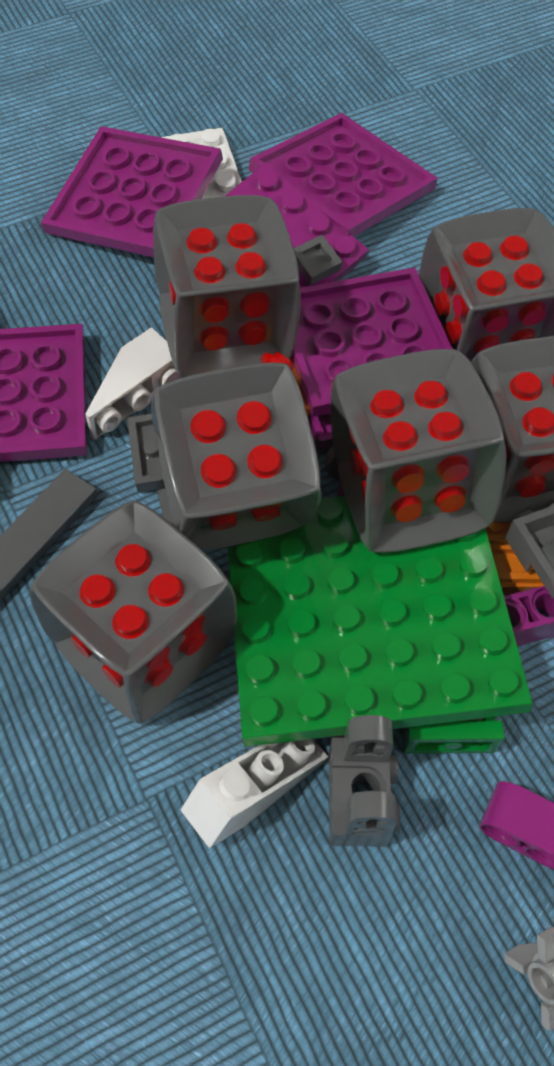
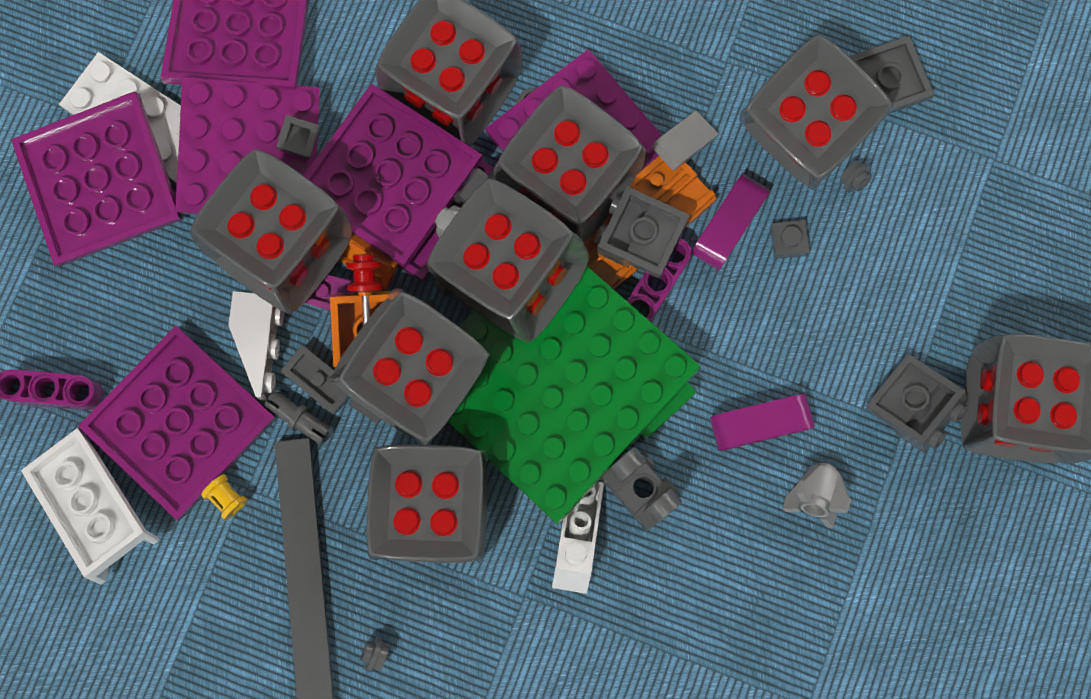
camera: 40 degrees left, 20 degrees up
(104, 467) = (298, 418): none -> dark grey pin

